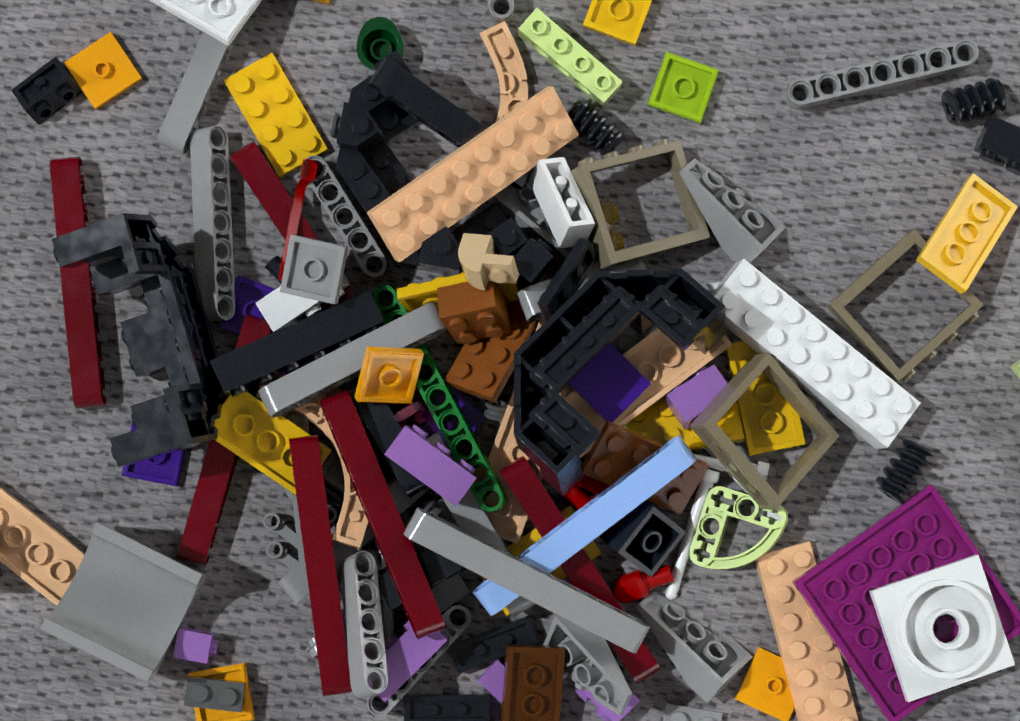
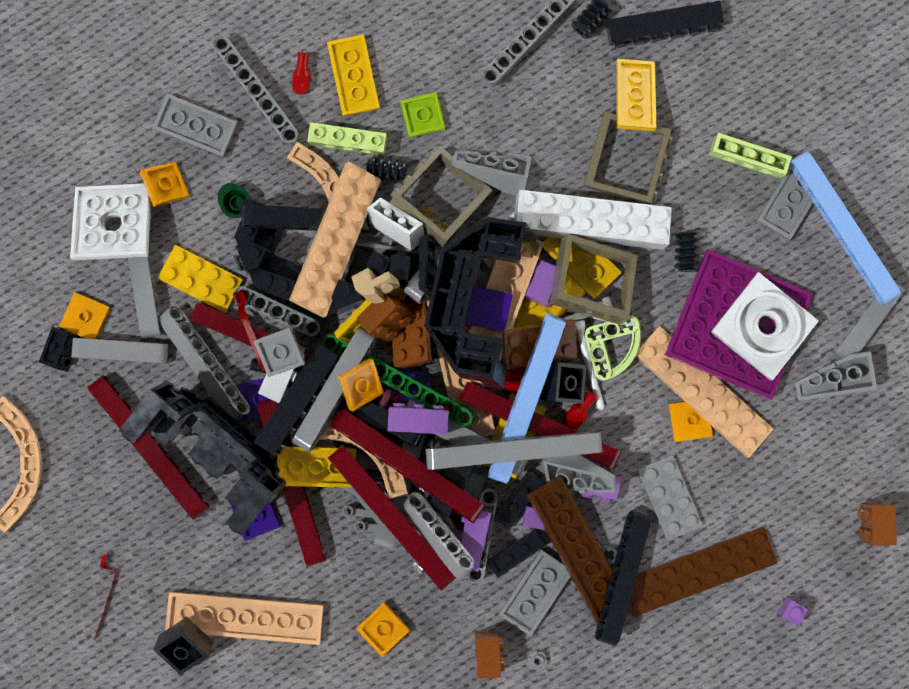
camera: 35 degrees left, 0 degrees up
(119, 140) = (119, 350): none -> light grey beam
(125, 603) = (294, 611): light grey piece -> none
(195, 645) = (349, 609): medium lavender brick -> none
(215, 694) = (378, 630): dark grey plate -> none
(699, 655) = (640, 430): light grey wedge -> none

